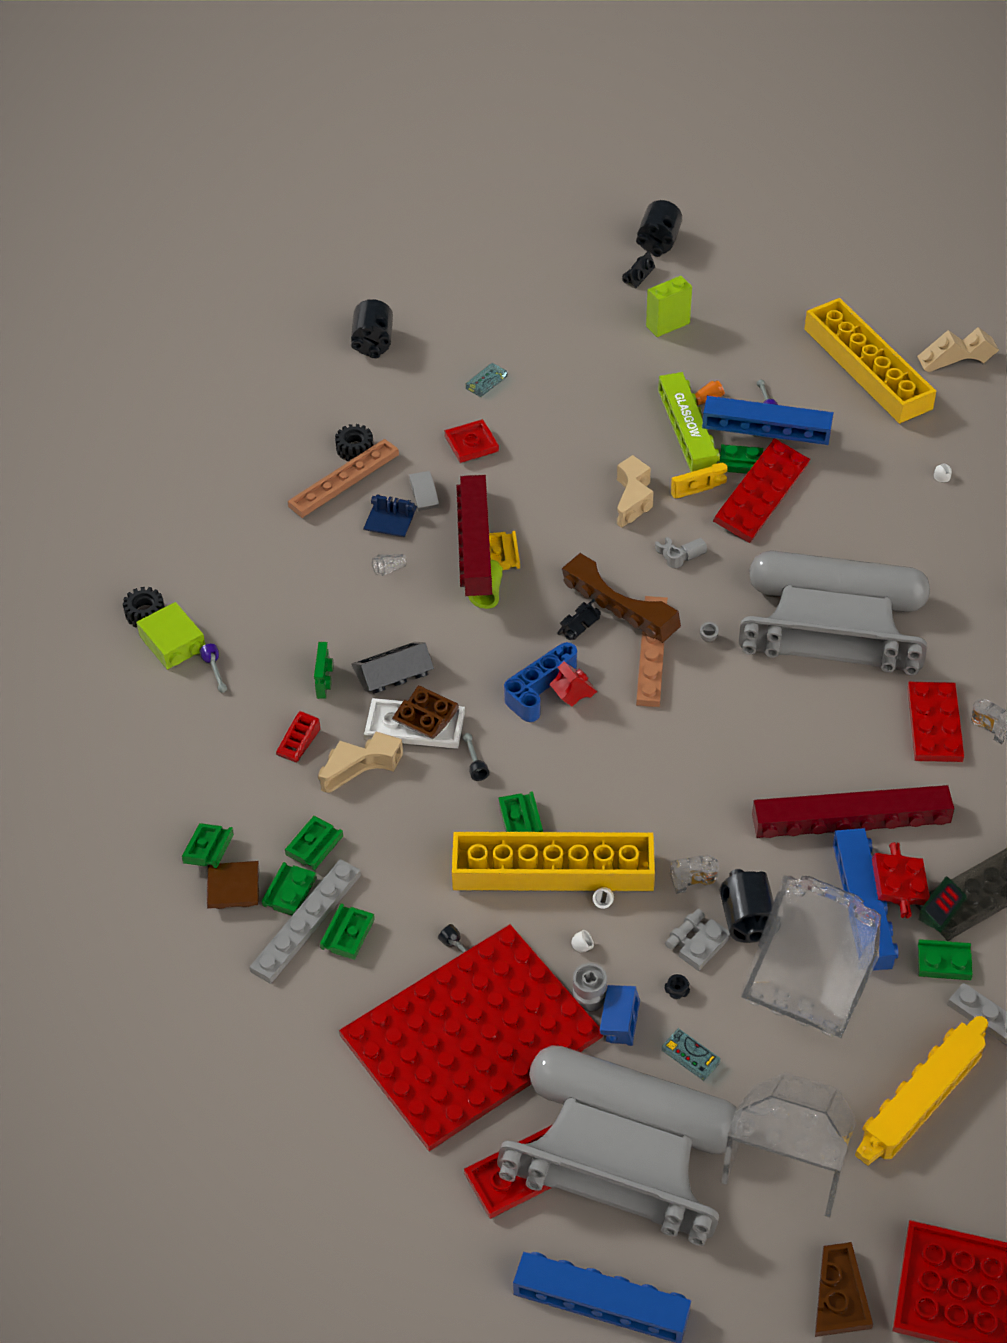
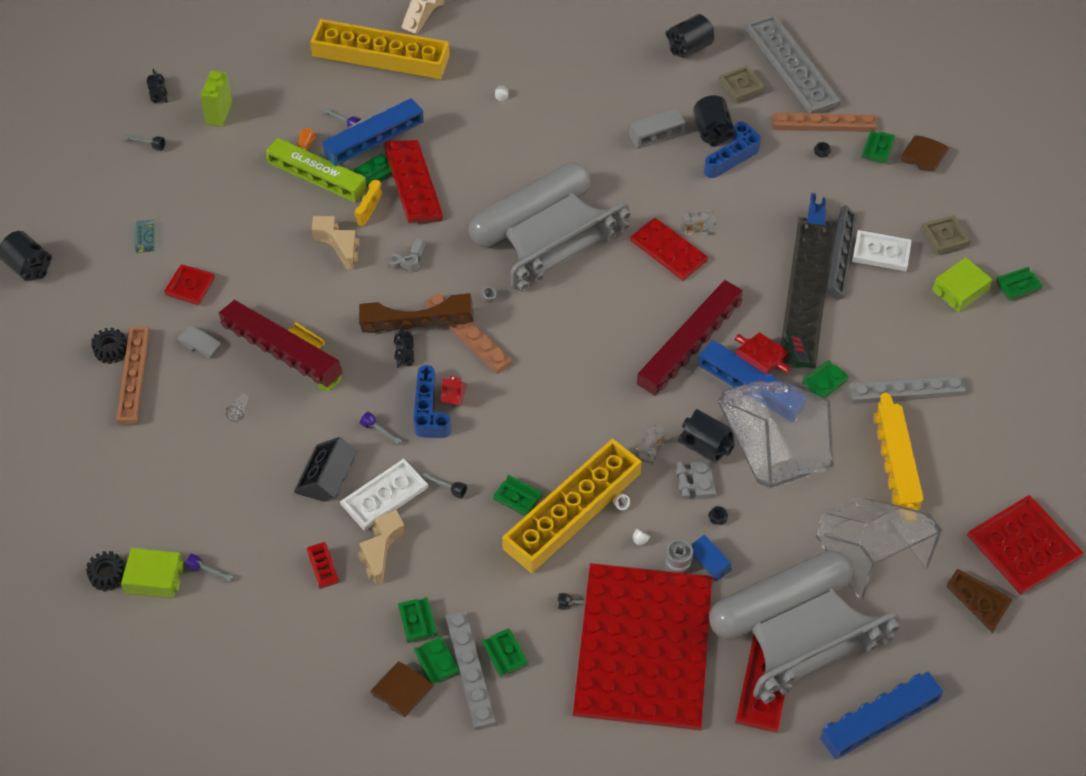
camera: 50 degrees left, 5 degrees up
(207, 845) = (355, 680): green plate -> none
(323, 666) = (287, 510): green plate -> none
(390, 516) = (198, 376): dark blue hinge -> none
(426, 712) = (388, 480): reddish brown slope -> none
(476, 655) = (369, 421): none -> hinge
(584, 310) = (157, 142): none -> black hinge
(659, 227) = (140, 47): black cylinder -> none
(691, 1054) = (767, 546): clear light blue tile -> none

